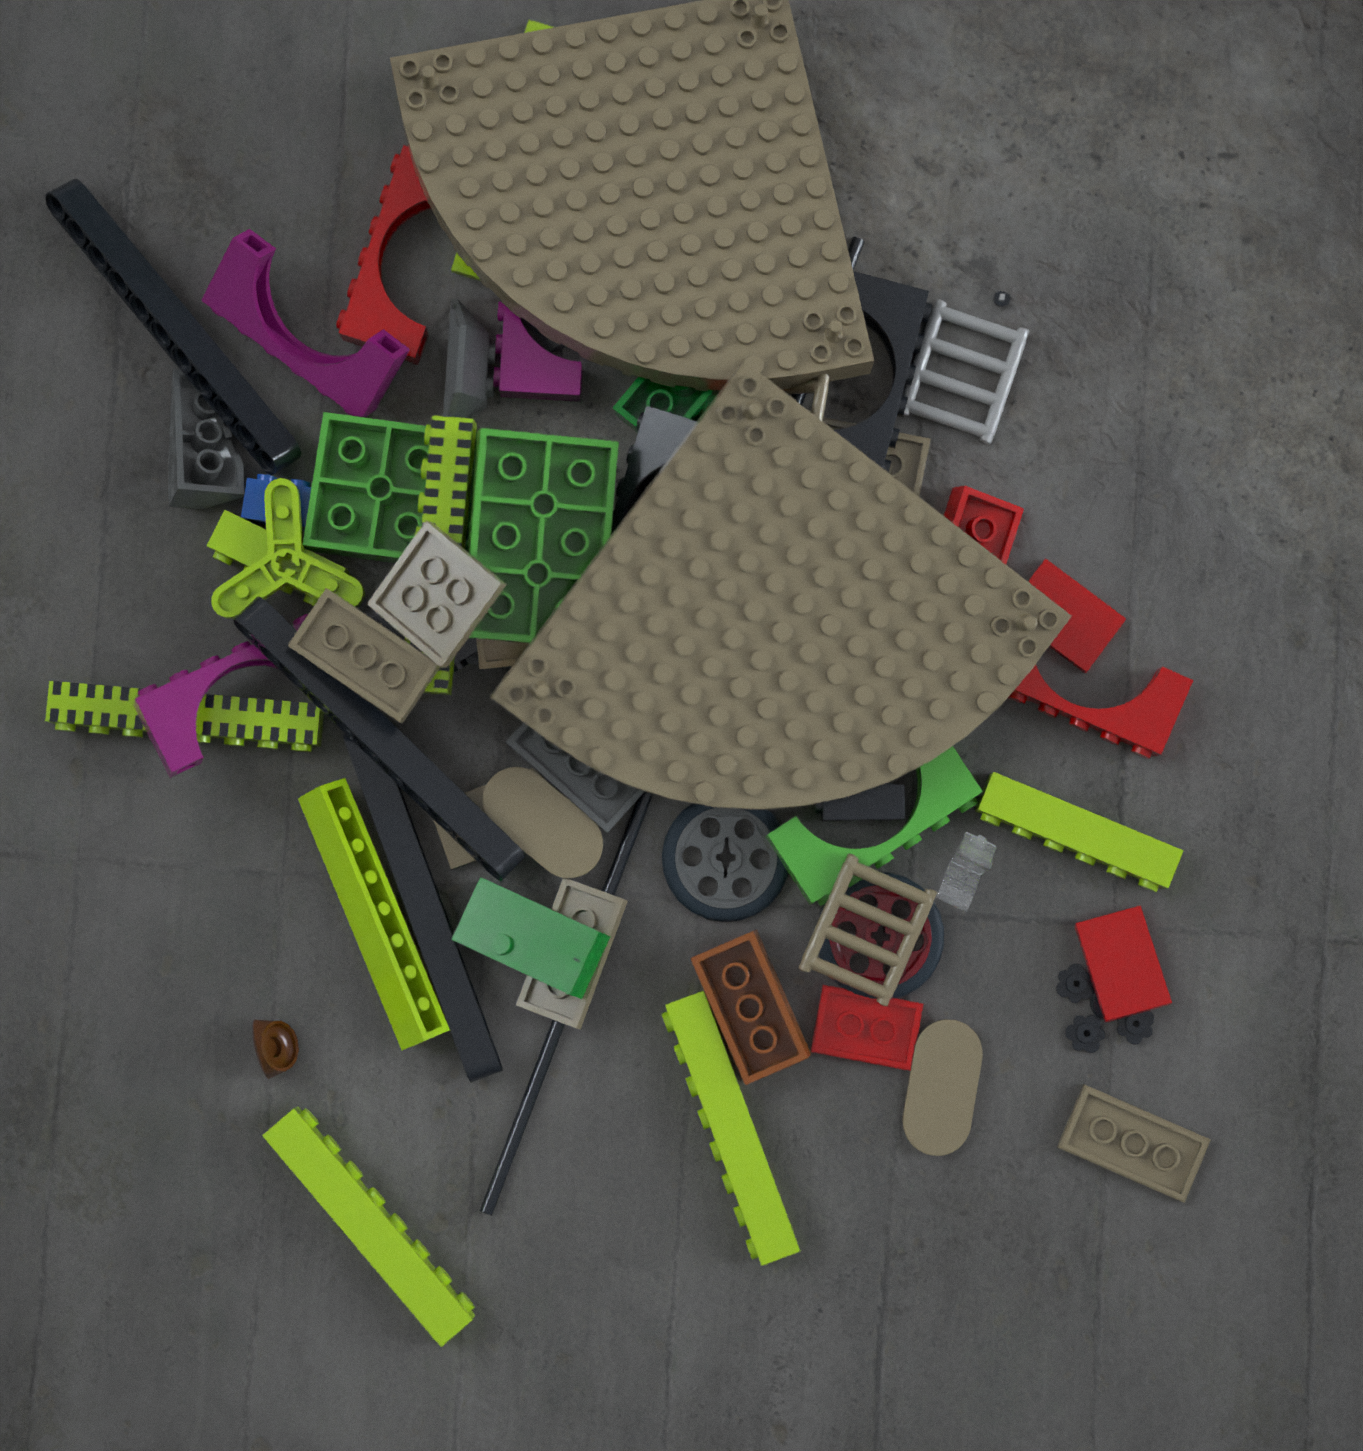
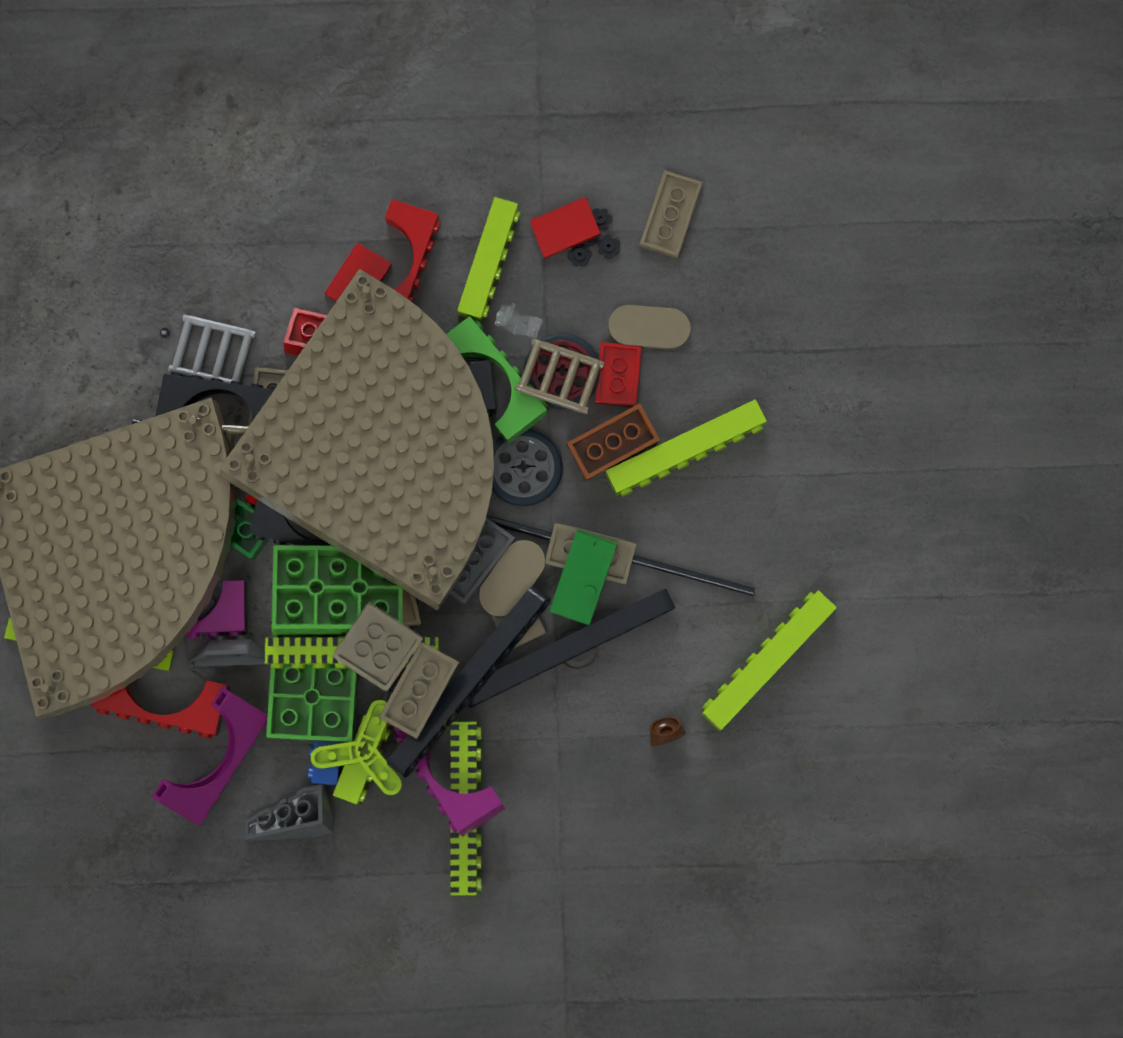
camera: 95 degrees left, 5 degrees down
(173, 326) = (216, 843): black beam -> none
(373, 913) = (578, 676): lime brick -> none

